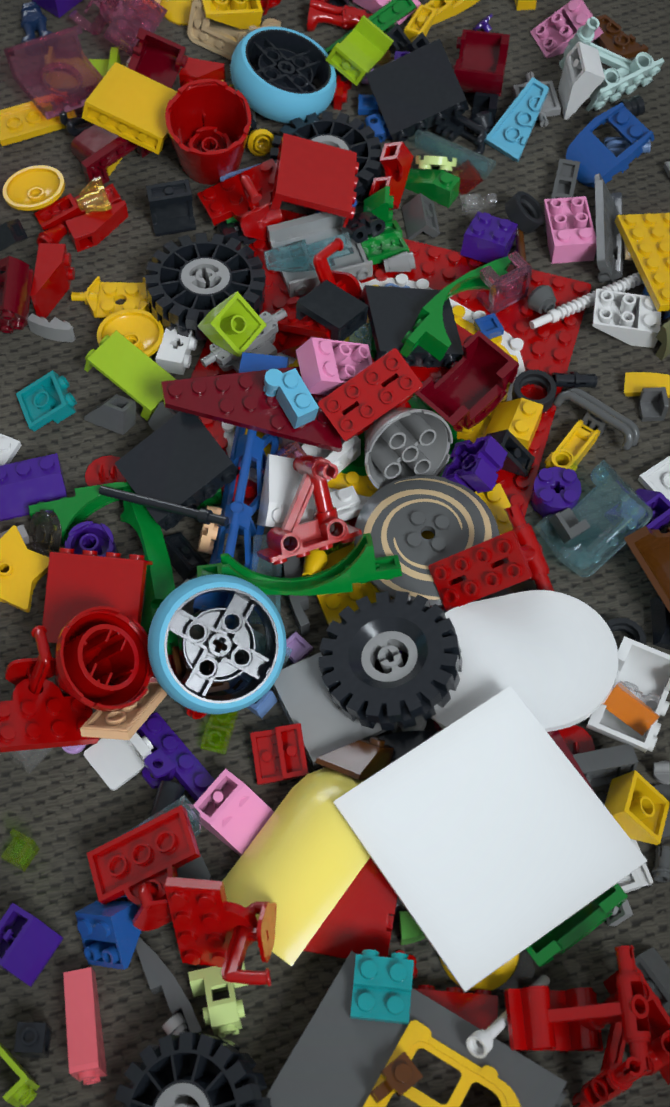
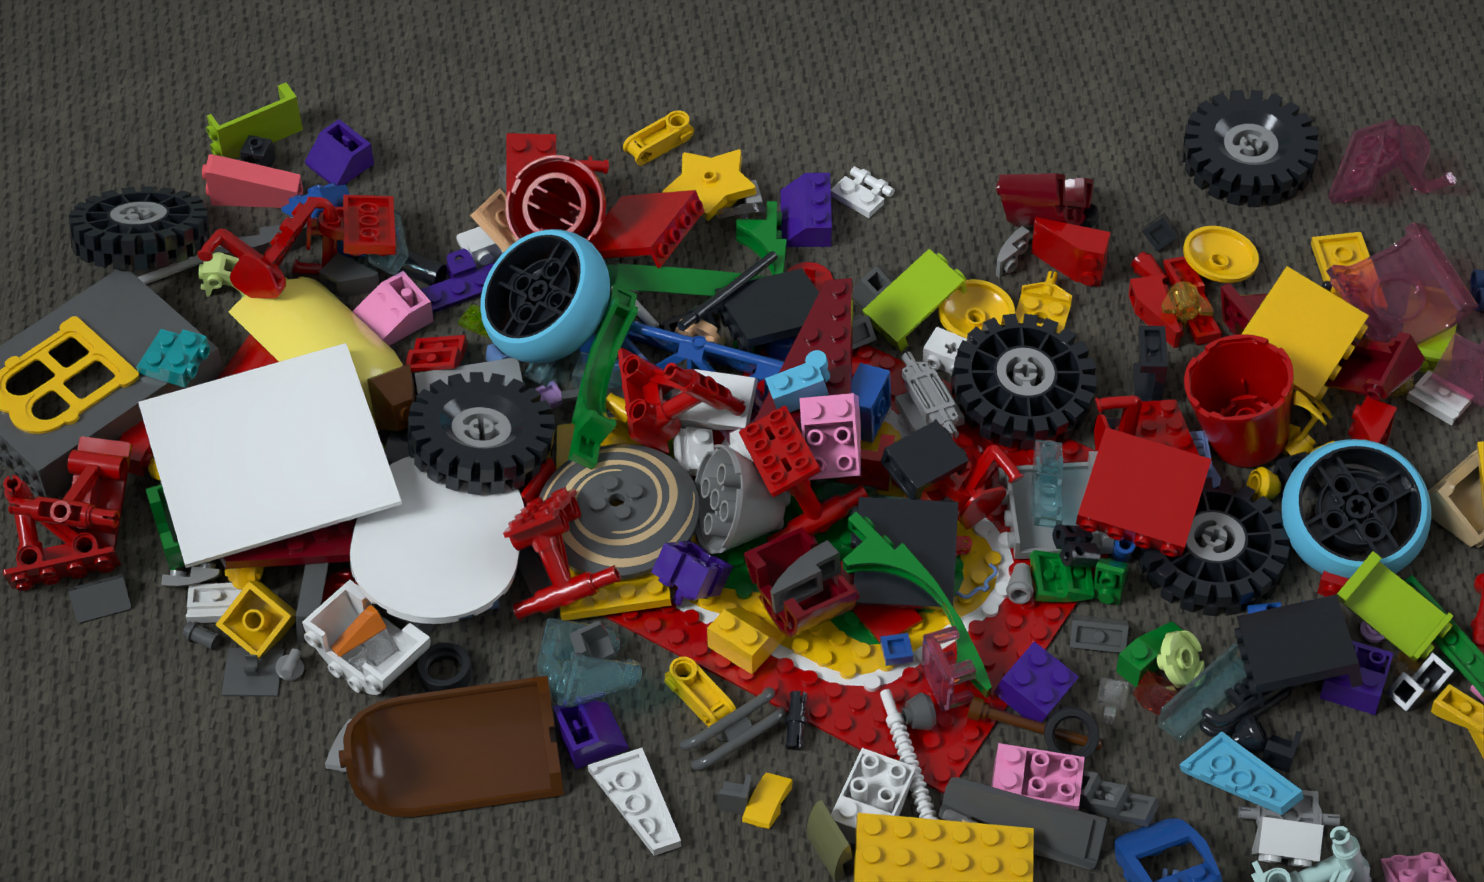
camera: 105 degrees right, 10 degrees down
(20, 850) = (425, 168): clear neon green panel -> none
(46, 400) = (911, 237): teal plate -> none
(91, 537) = (712, 245): dark purple brick -> none
(232, 325) = (932, 372): lime slope -> none
(397, 164) = (1142, 598): red arch -> none
(399, 1076) = (97, 350): reddish brown plate -> none
(460, 381) = (806, 575): none -> dark grey slope
(481, 61) = (1344, 753): dark red cylinder -> none
(481, 1041) = (96, 412): white piece -> none
(484, 24) = (1455, 792): dark purple plant -> none
(518, 458) = (705, 611): black slope -> none
(538, 378) = (790, 651): black tyre -> none
(555, 490) = (650, 648): dark purple brick -> none

